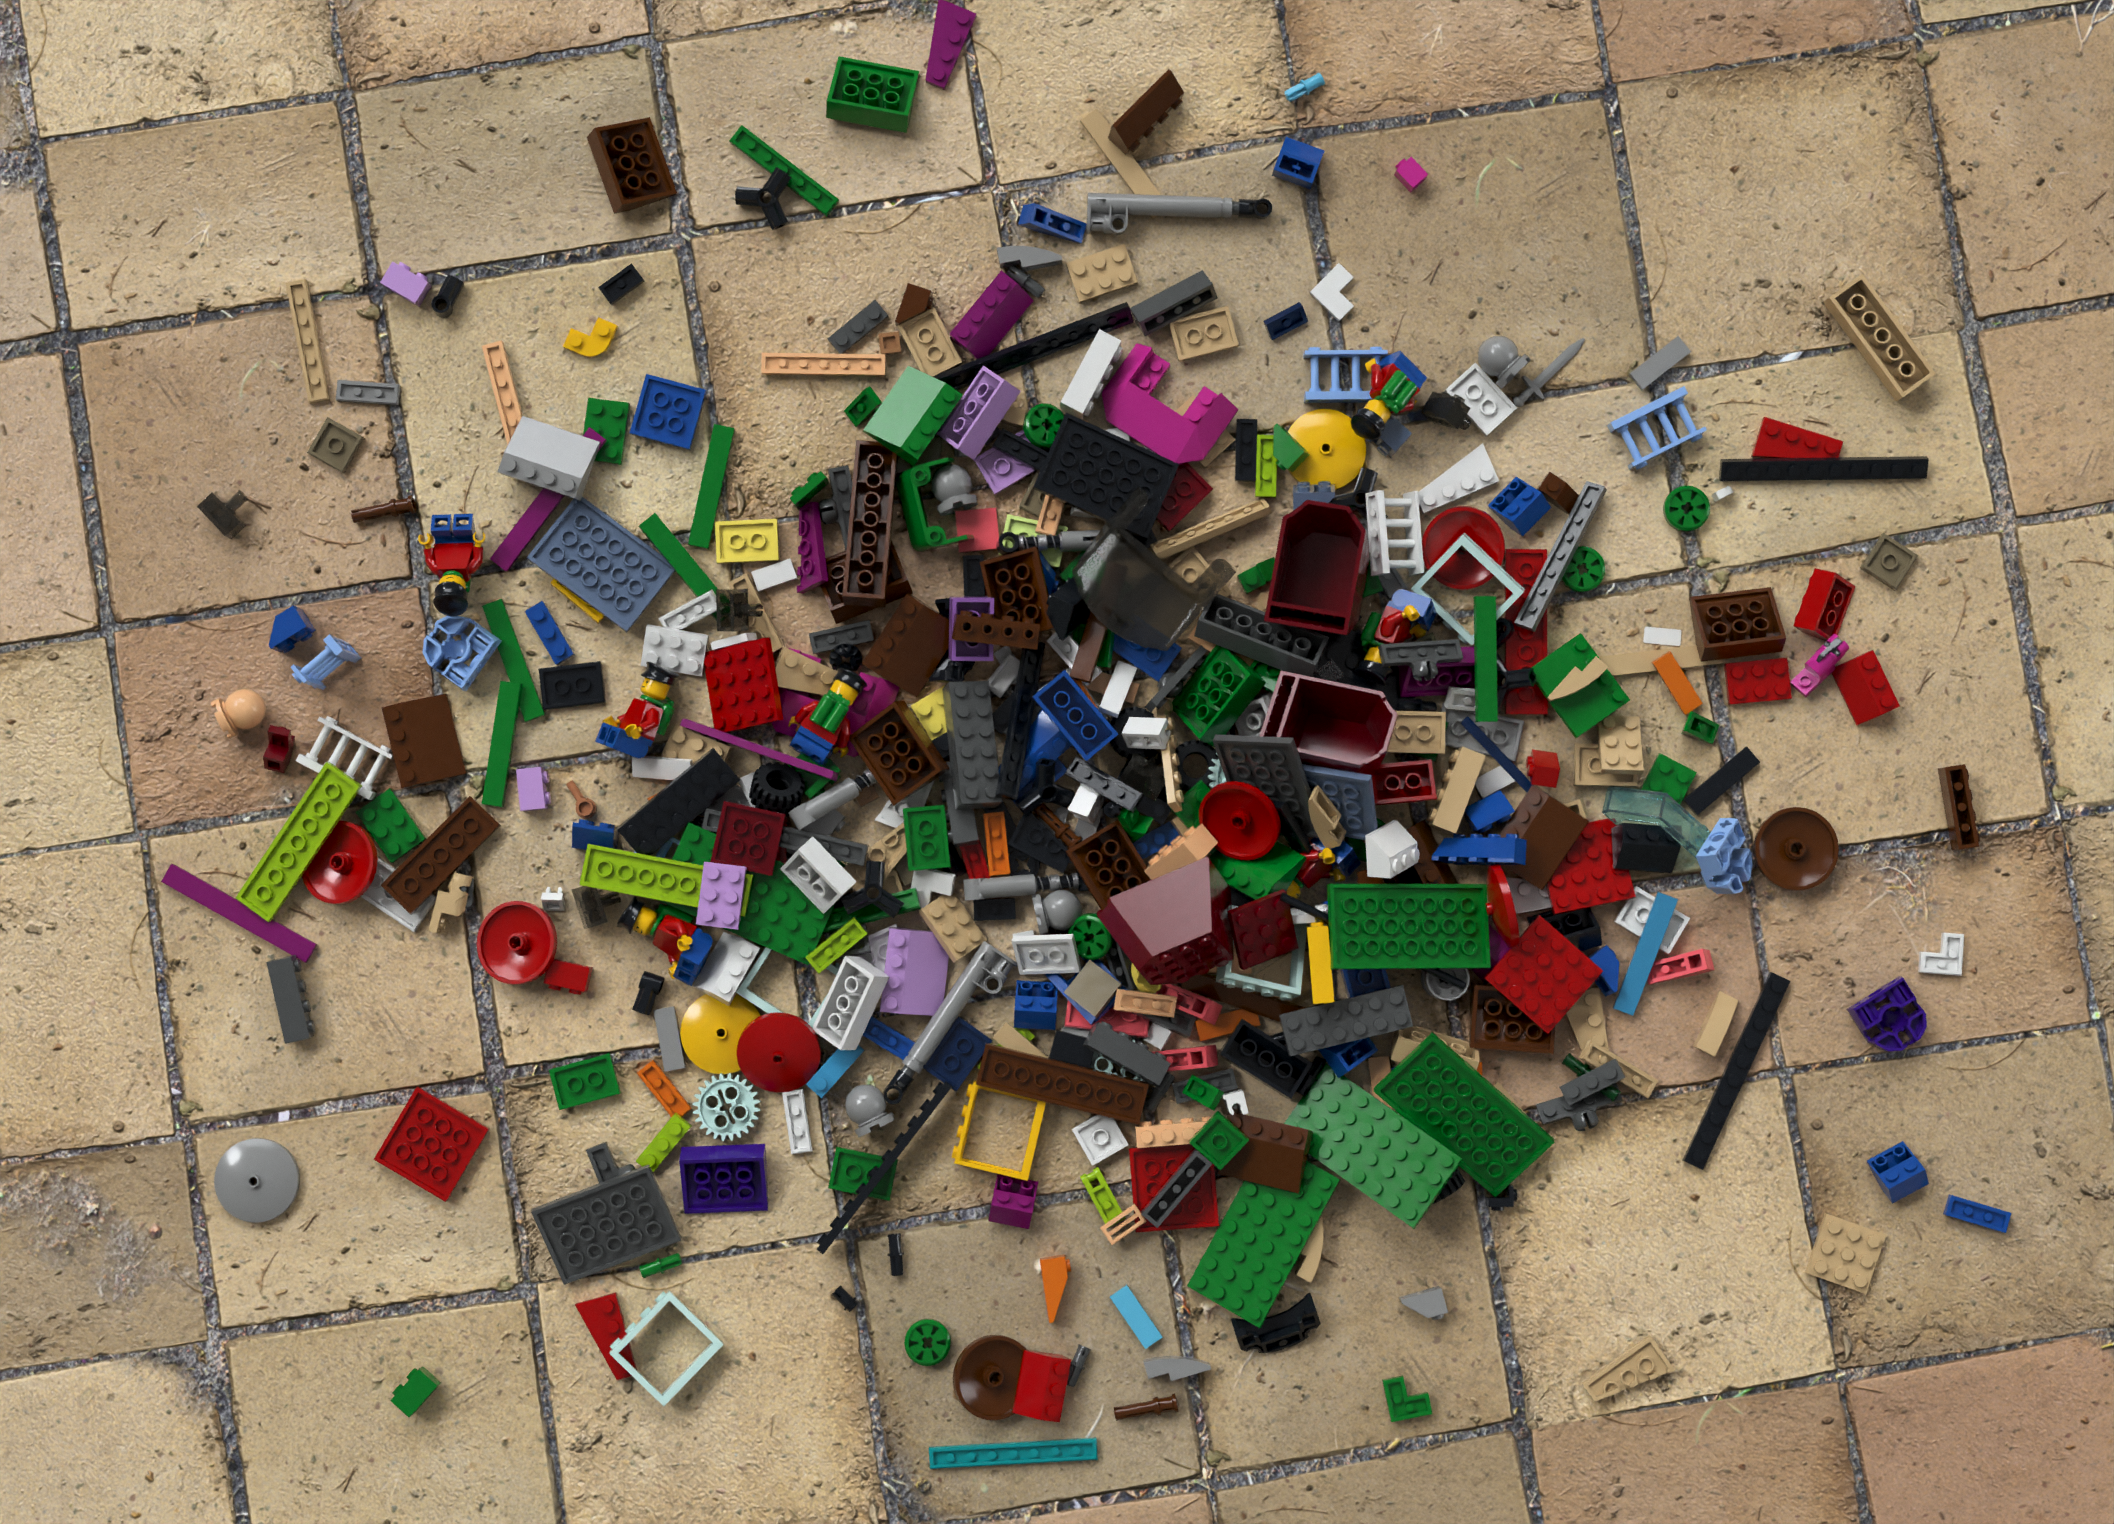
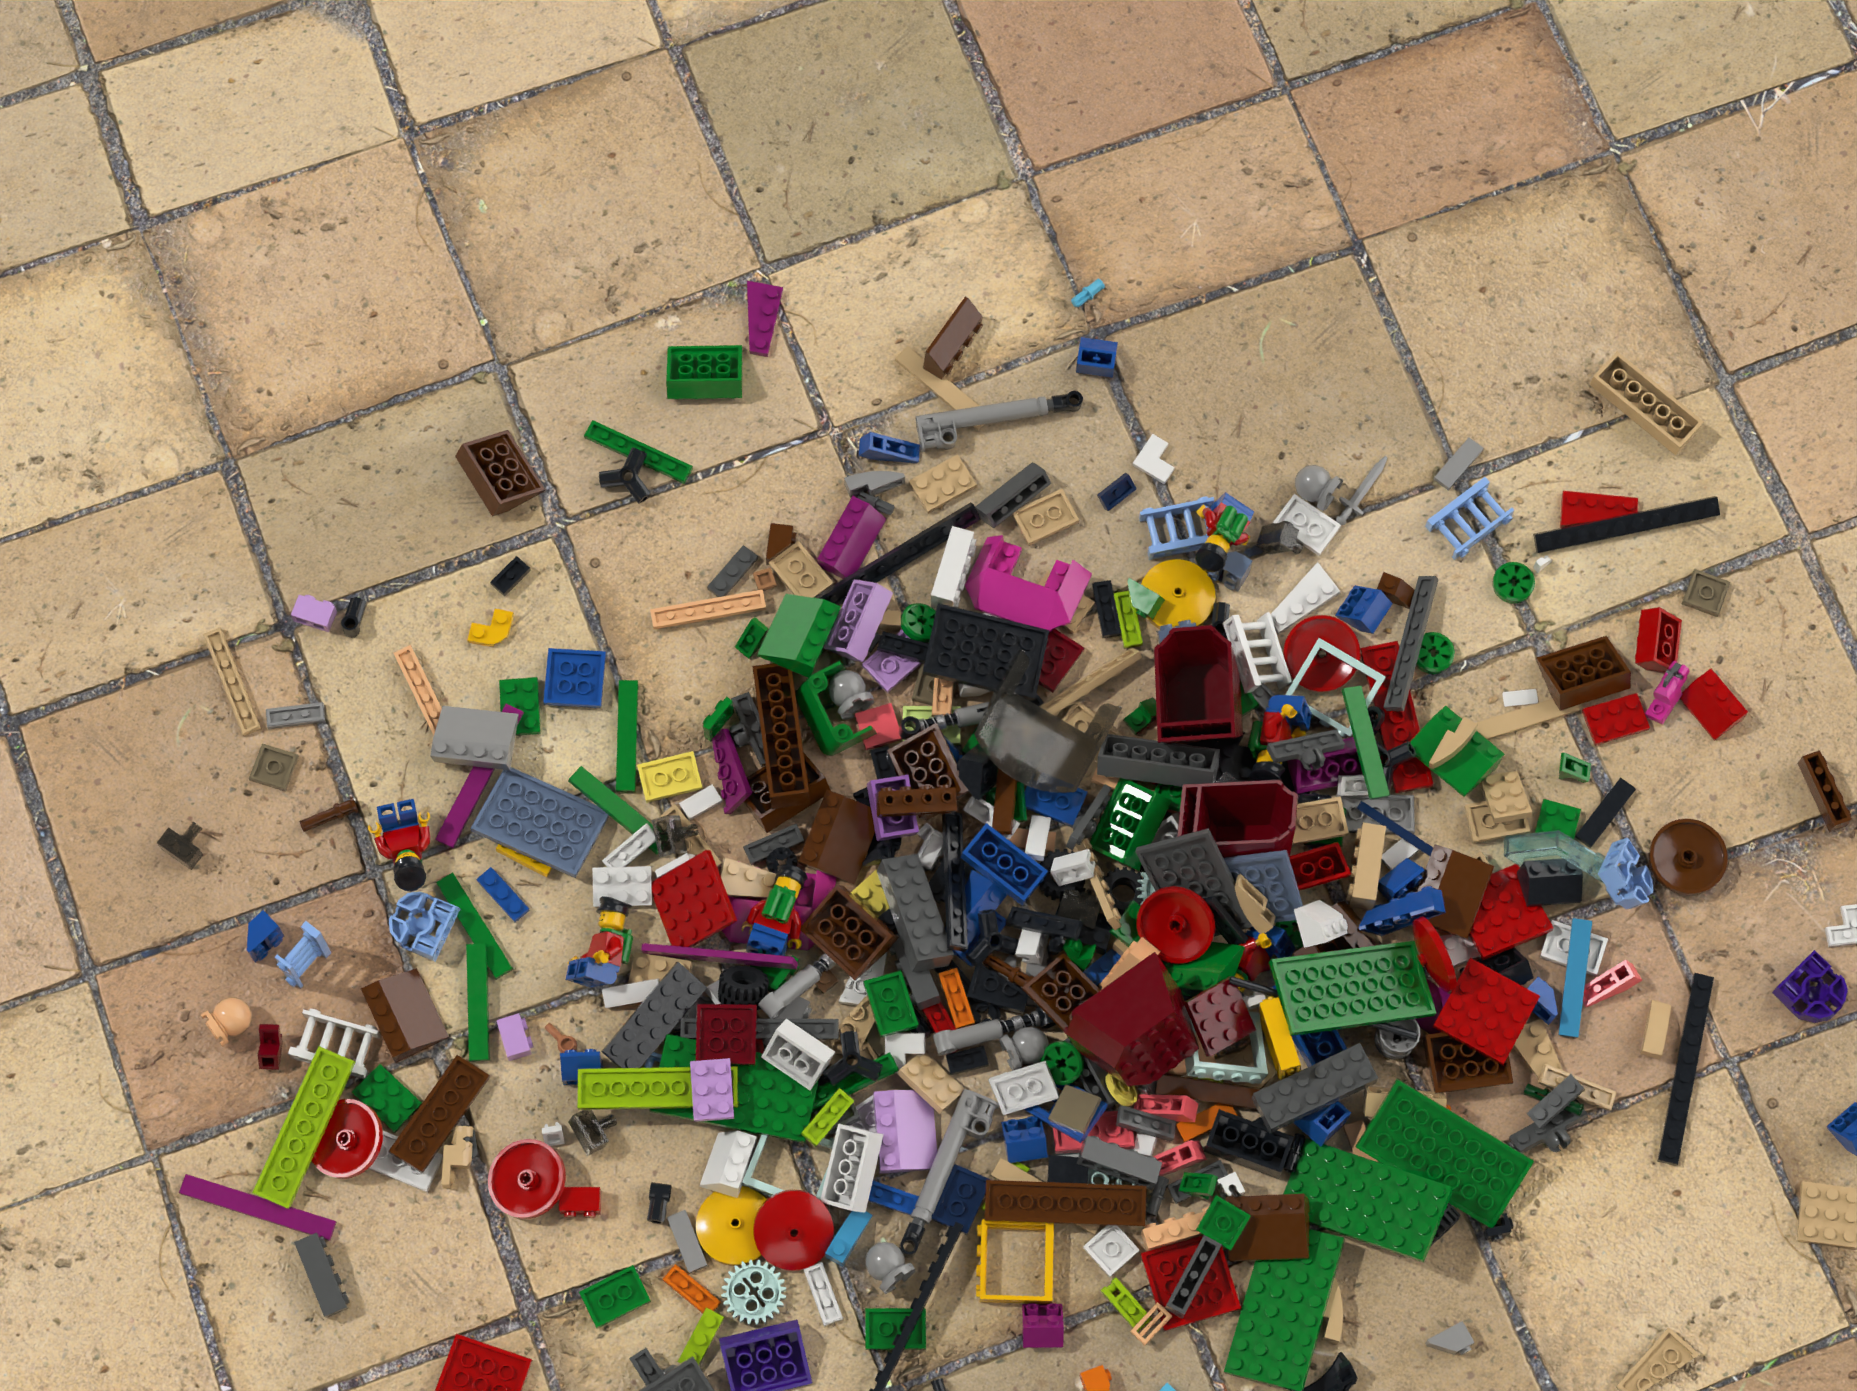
camera: 10 degrees left, 15 degrees down
(572, 685) = (532, 938): black tile -> none
(674, 935) = (675, 1142): piece -> none
(1145, 1003) = (1126, 1112): light nougat tile -> none
(1410, 173) = (1198, 347): dark pink brick -> none
(1543, 768) = (1441, 830): red brick -> none
(1677, 682) = (1543, 734): orange tile -> none

